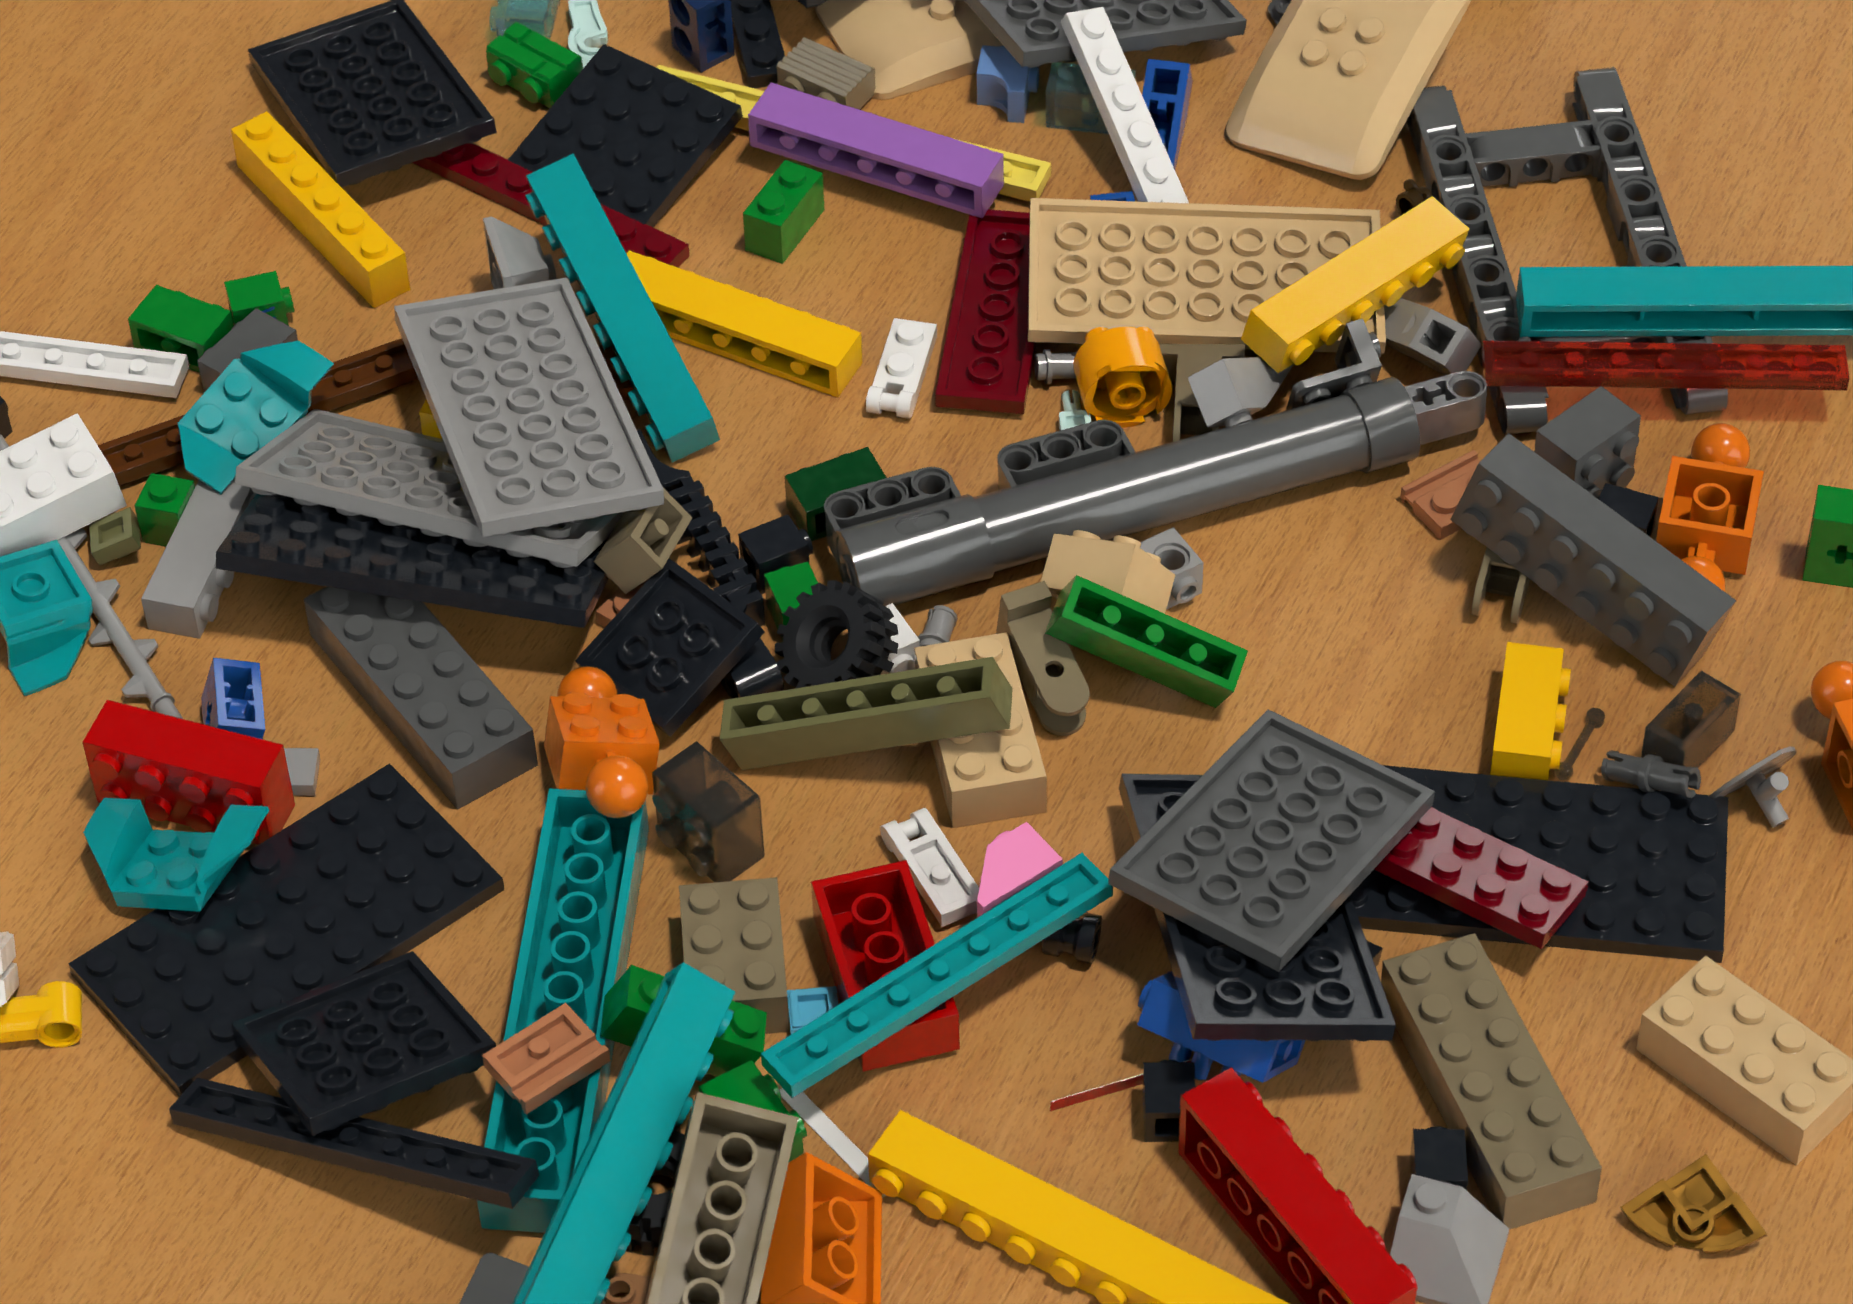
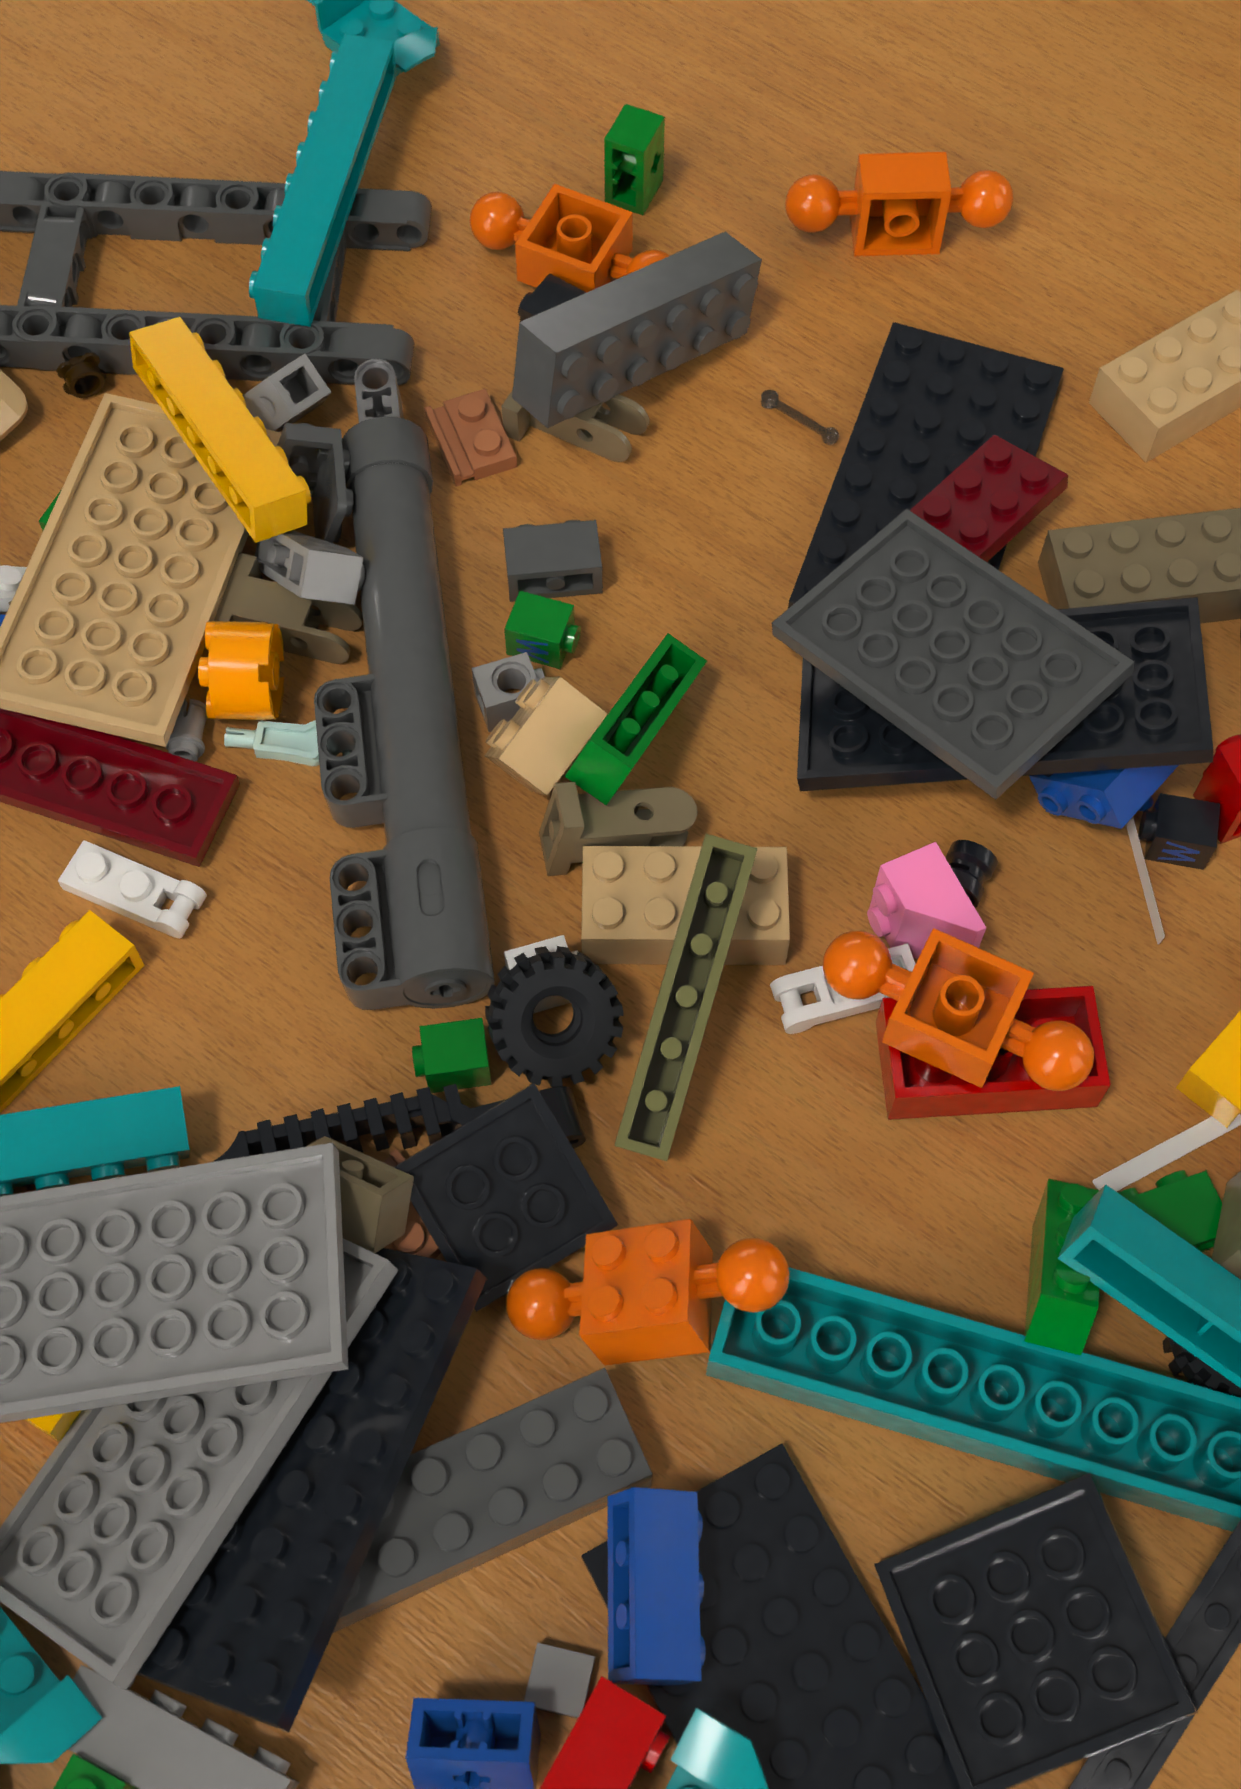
camera: 80 degrees left, 15 degrees up
(362, 787) = (654, 1587): none -> blue brick
(546, 1058) = (1121, 1417): nougat plate -> none
(708, 814) = (765, 1190): clear smoke brick -> none
(737, 939) = (949, 1205): dark tan brick -> none
(774, 547) = (377, 1062): black brick -> none
(809, 1004) = (1013, 1142): medium azure tile -> none
(812, 485) = (307, 985): dark green brick -> none
(891, 890) = (958, 1009): none -> orange brick
(936, 975) = (1063, 994): teal plate -> none
(938, 626) = (533, 923): light grey pin -> none
(1243, 579) = (541, 629): none -> green brick
(1326, 574) = (553, 559): none -> dark grey brick
(1530, 712) = (768, 441): yellow brick -> none
(1592, 441) = (478, 311): dark grey brick -> none
(1651, 773) = (865, 365): dark grey pin -> none
(1665, 365) = (394, 228): clear red plate -> none
(1693, 722) = (824, 321): clear smoke brick -> none
(1764, 789) = (887, 286): light grey shield -> none

